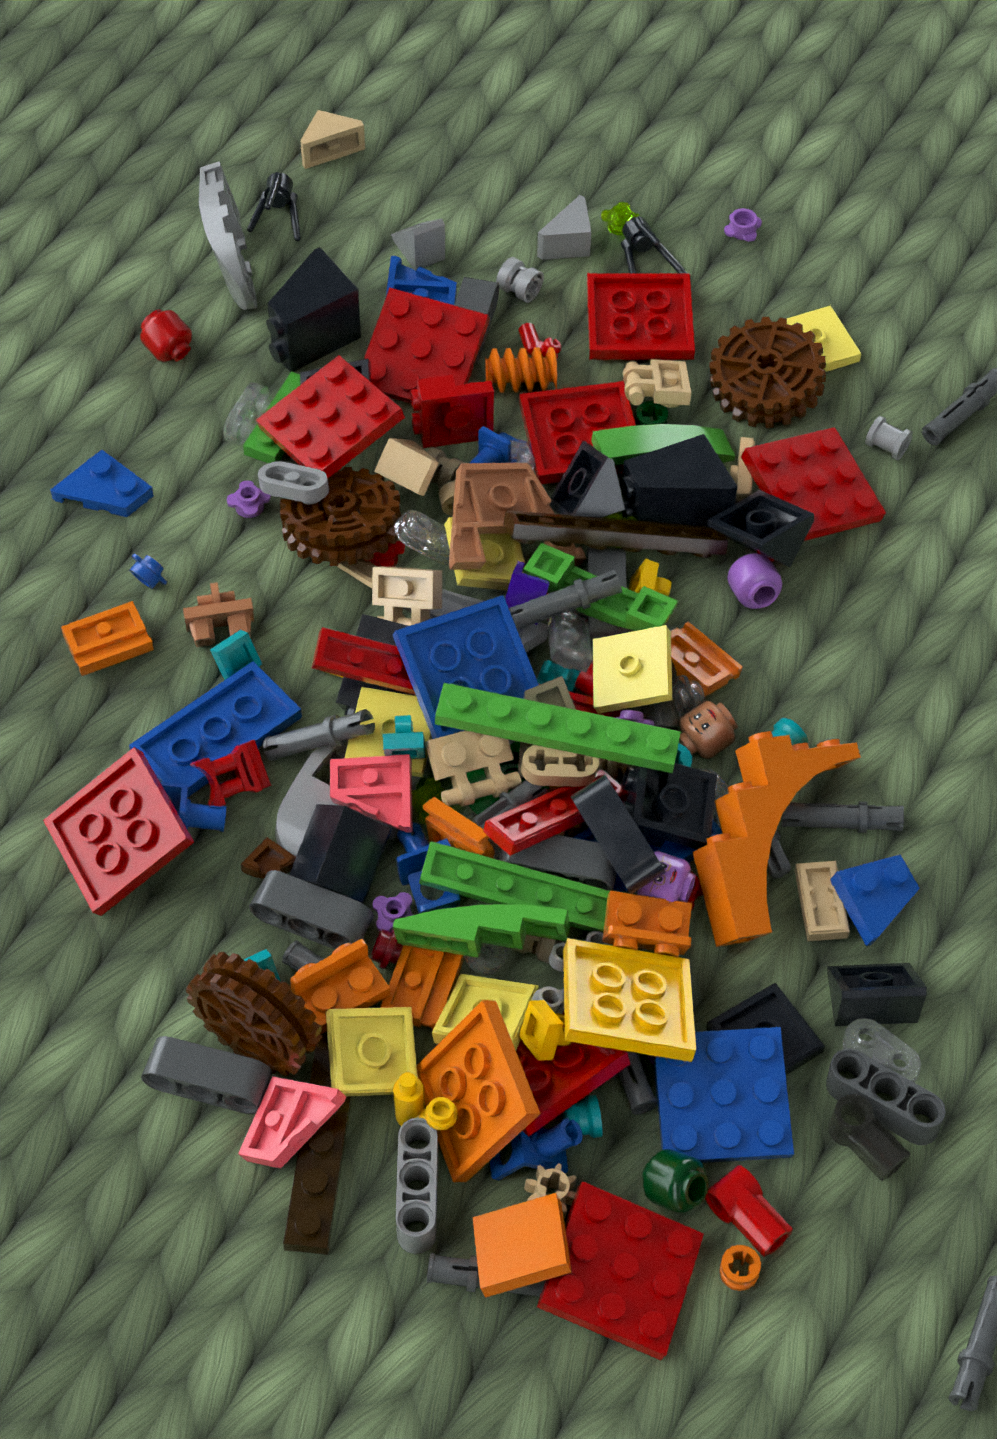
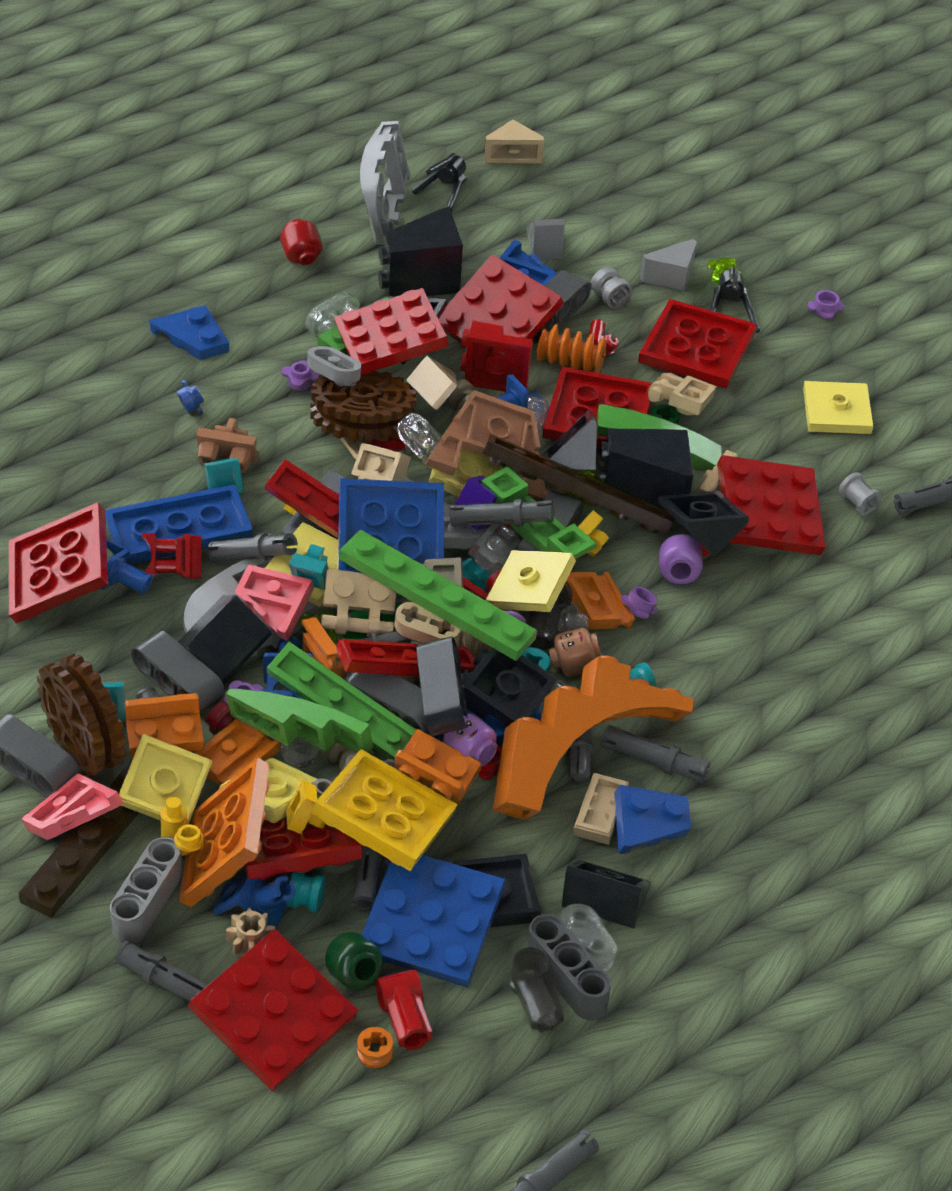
camera: 20 degrees right, 10 degrees down
(107, 638) = (132, 434): orange plate -> none
(267, 857) = (169, 623): reddish brown tile -> none
(521, 1245) = (198, 955): orange tile -> none
(739, 645) = (640, 602): none -> medium lavender plate
(767, 372) = (780, 413): reddish brown piece -> none

